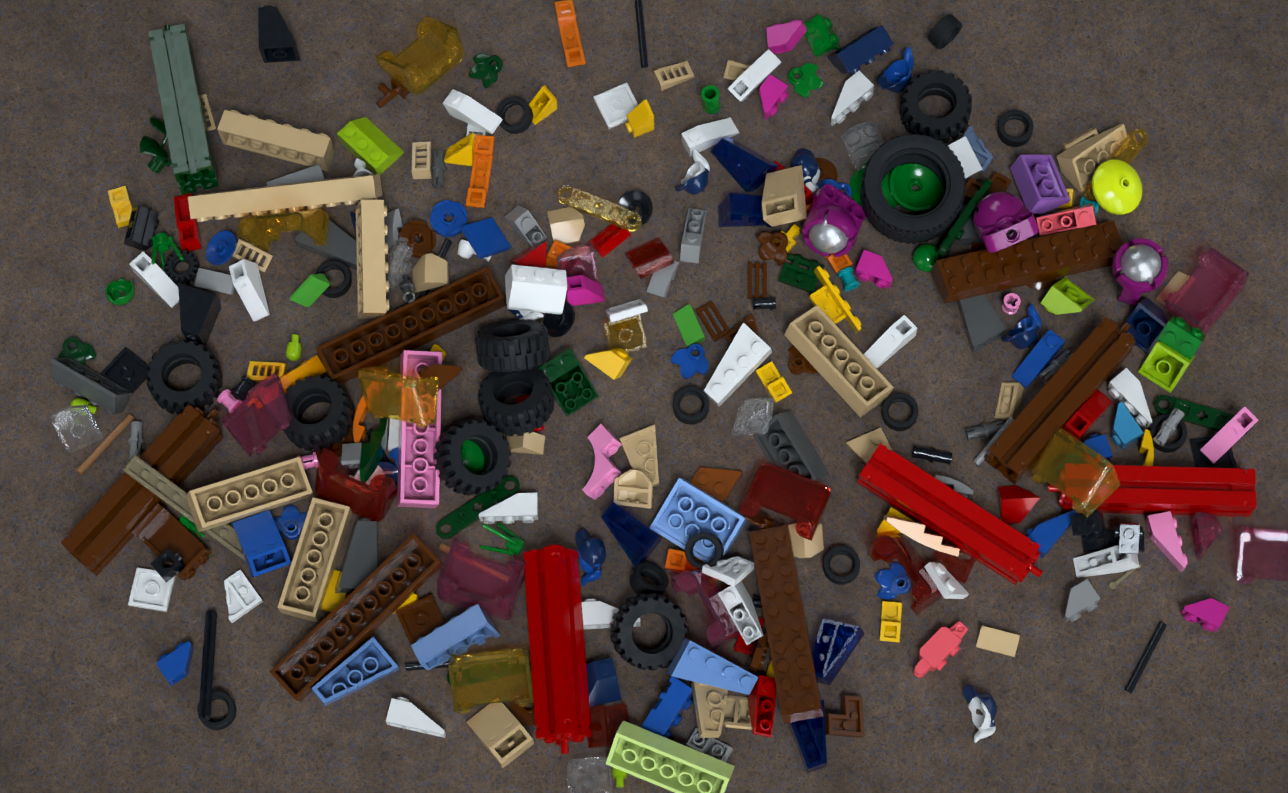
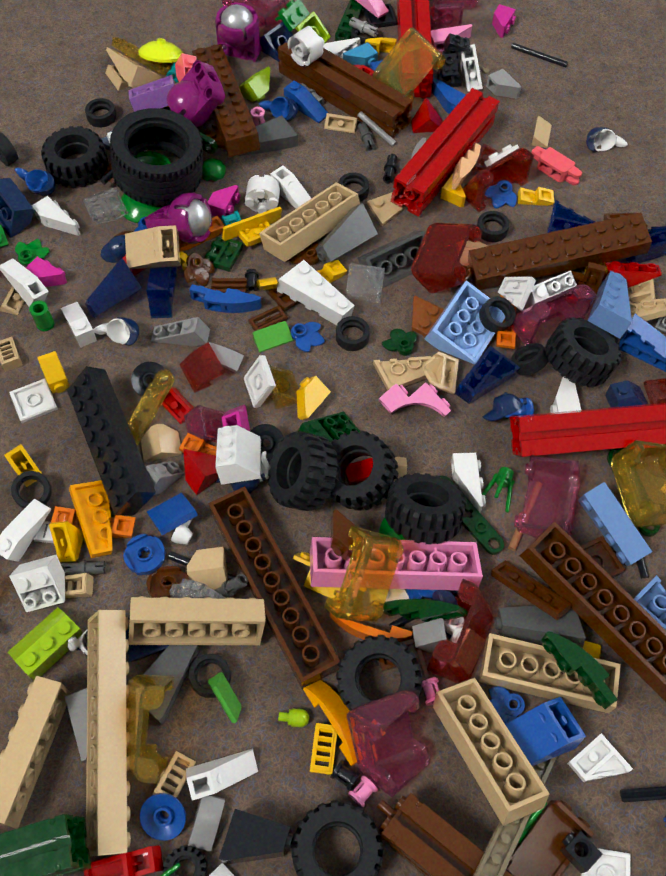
camera: 95 degrees left, 10 degrees down
(317, 573) = (574, 659): none -> dark green slope
(375, 559) = (531, 590): none -> reddish brown plate
(422, 133) = (40, 583): none -> white slope
(492, 169) = (94, 516): none -> light orange wing
(561, 175) = (110, 442): none -> black brick
(685, 453) = (400, 341): none -> dark green plate
(734, 279) = (229, 302): none -> blue slope
(753, 315) = (267, 283): none -> yellow slope
(818, 399) = (347, 234): none -> slope
(878, 309) = (262, 193): none -> white brick
(1088, 344) = (306, 46): none -> white brick

